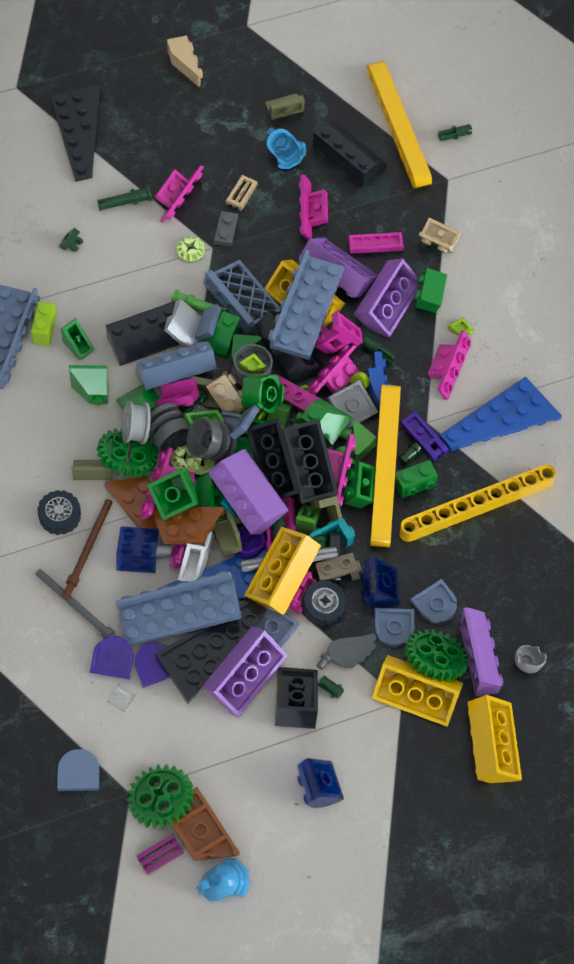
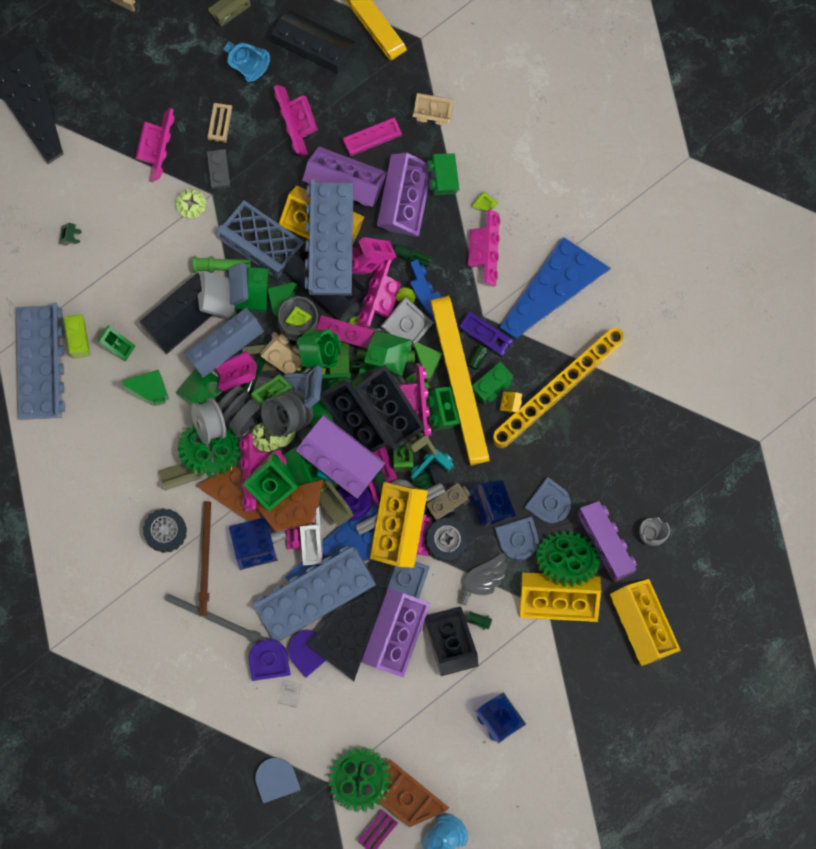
camera: 15 degrees left, 15 degrees up
(133, 196) = (114, 164): dark green pin -> none
(428, 499) = (511, 402): none -> yellow bracket

